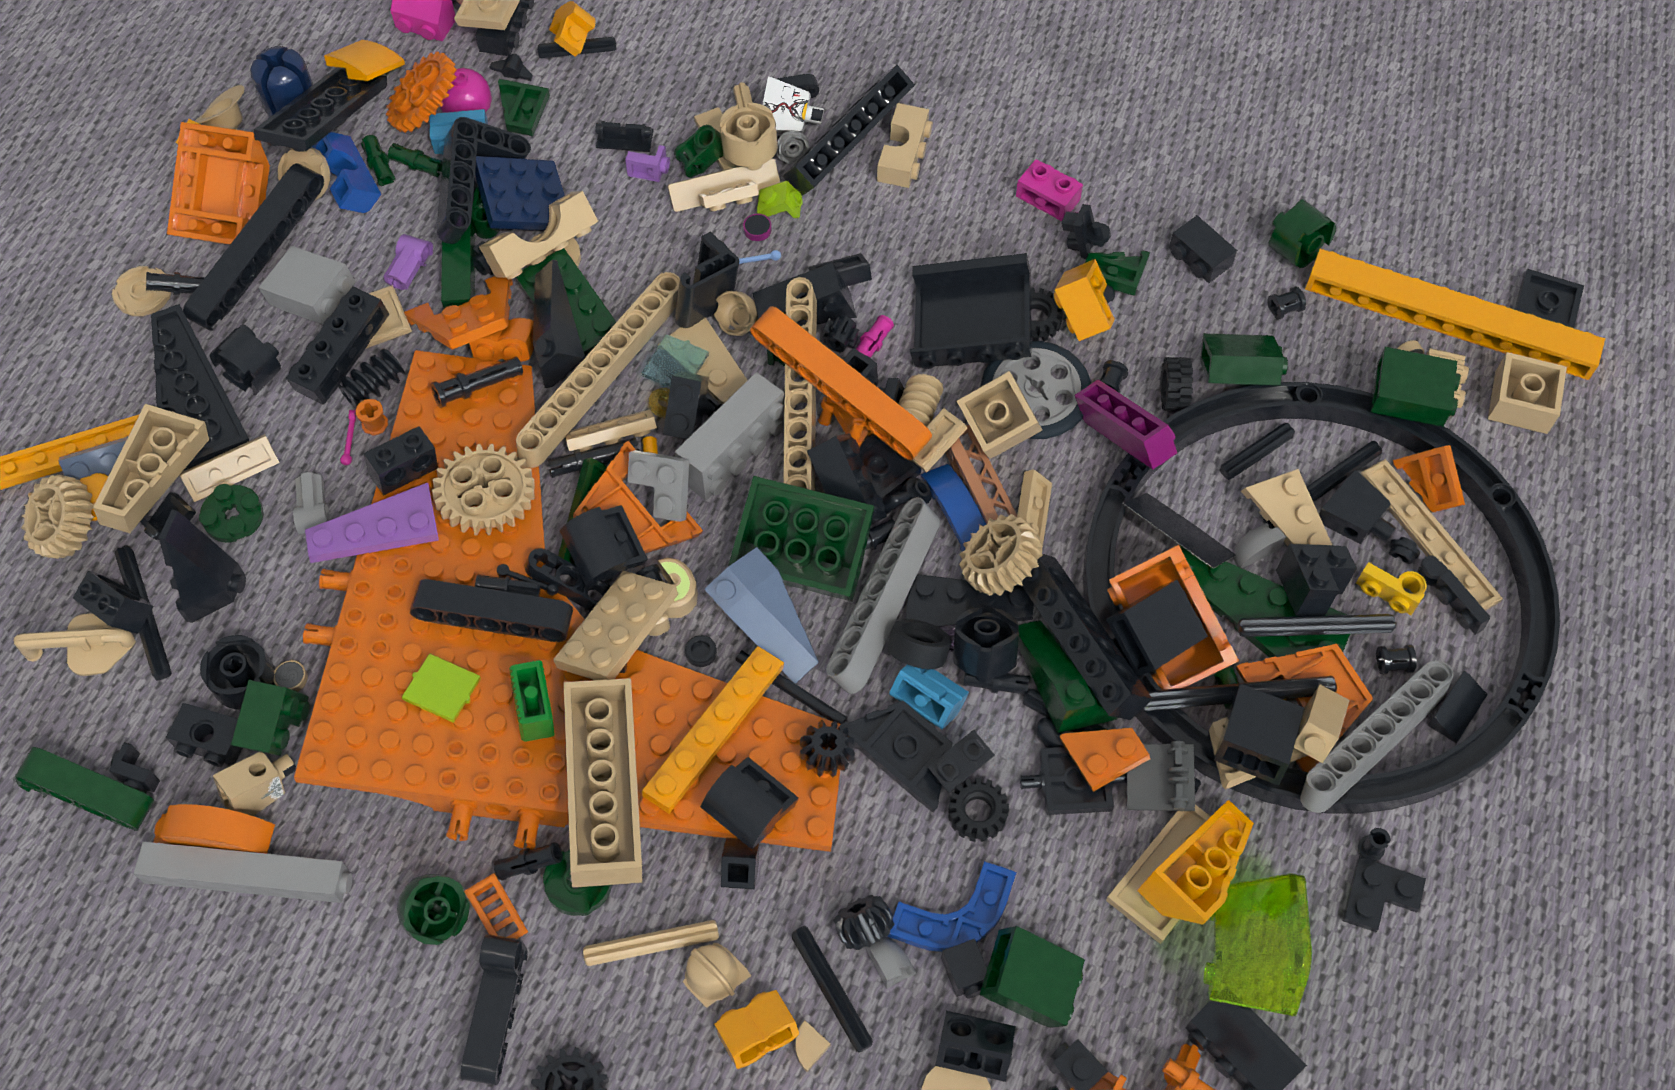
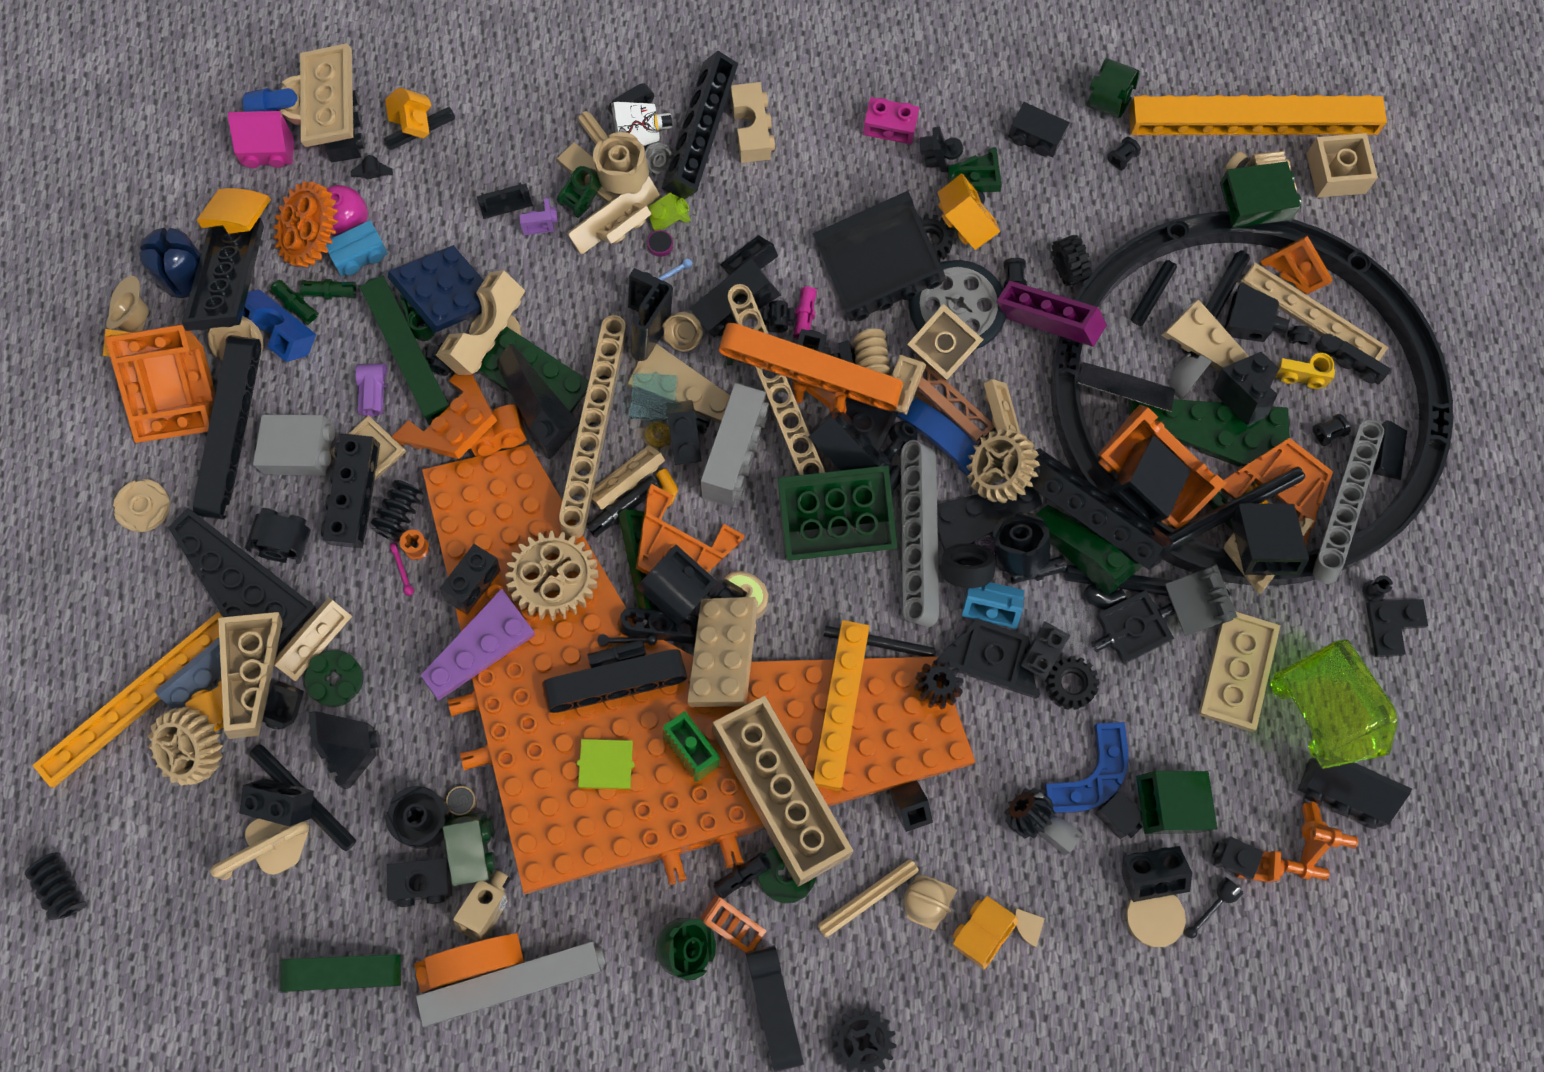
camera: 25 degrees left, 10 degrees up
(126, 771) = (374, 943): black bracket -> none
(172, 283) = (171, 488): black pin -> none
(311, 503) = (404, 648): light grey piece -> none
(461, 146) = (374, 265): black beam -> none
(464, 385) = (488, 490): black pin -> none
(522, 105) = (398, 202): dark green wing -> none
(669, 478) = (703, 504): light grey plate -> none
(700, 651) = (791, 639): black tile -> none
(748, 801) = (902, 756): black brick -> none
(760, 605) = (831, 586): sand blue wedge -> none
(832, 989) = (1024, 874): black axle -> none
(1105, 754) = (1152, 599): orange wing -> none
(1199, 872) = (1263, 668): light orange wedge -> none
(1242, 359) = (1114, 219): dark green brick -> none
(1316, 625) = (1264, 427): black axle -> none
(1321, 723) = (1312, 510): tan brick -> none
(1549, 297) = (1323, 75): black plate -> none

